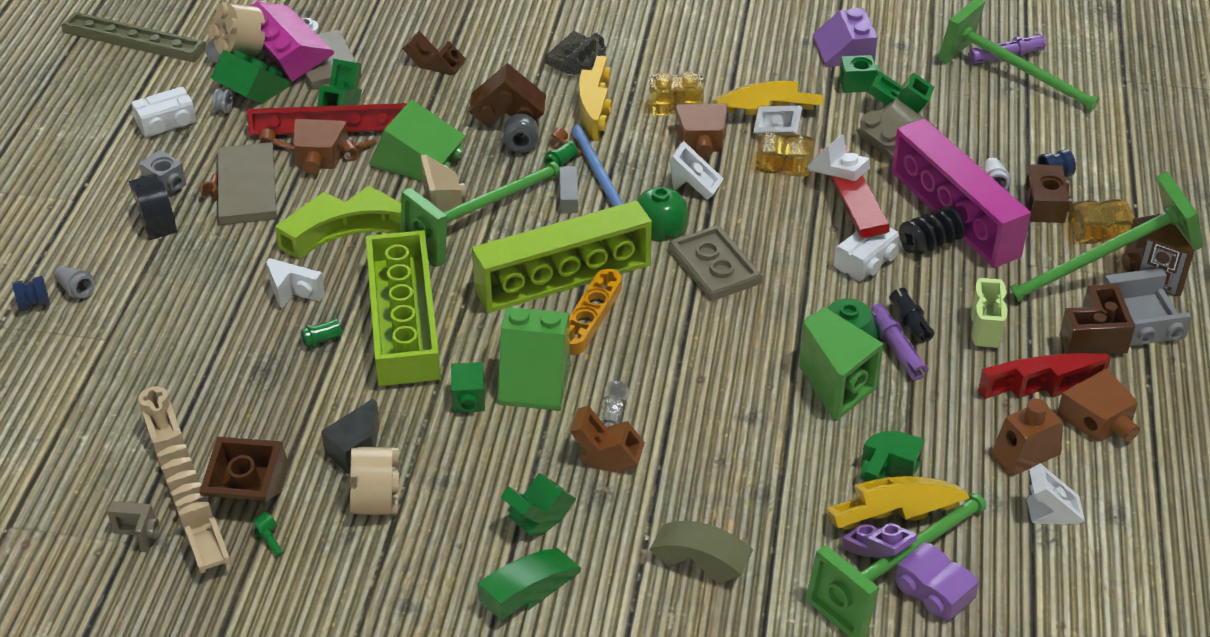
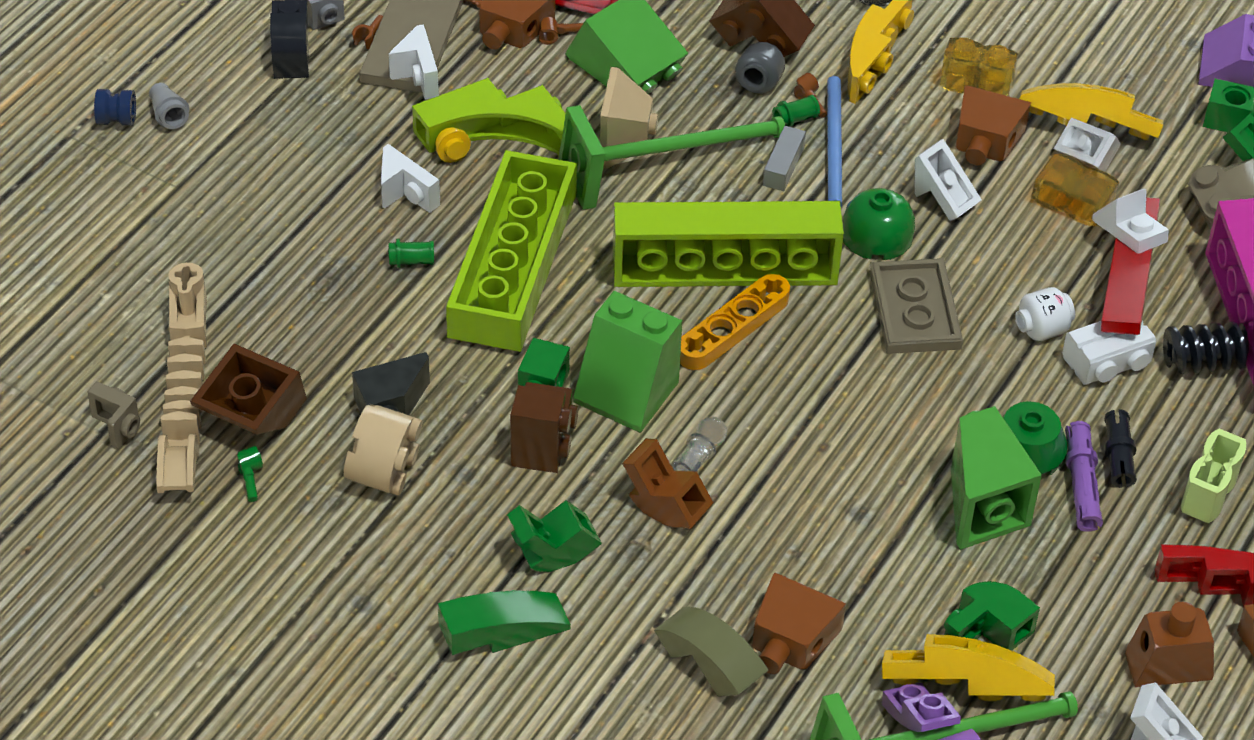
camera: 20 degrees right, 5 degrees up
(263, 193) = (415, 59): none -> white slope
(316, 247) = (452, 144): none -> yellow plate
(488, 427) = (541, 425): none -> reddish brown brick
(751, 508) = (795, 624): none -> dark orange torso
(811, 240) = (1045, 314): none -> white head

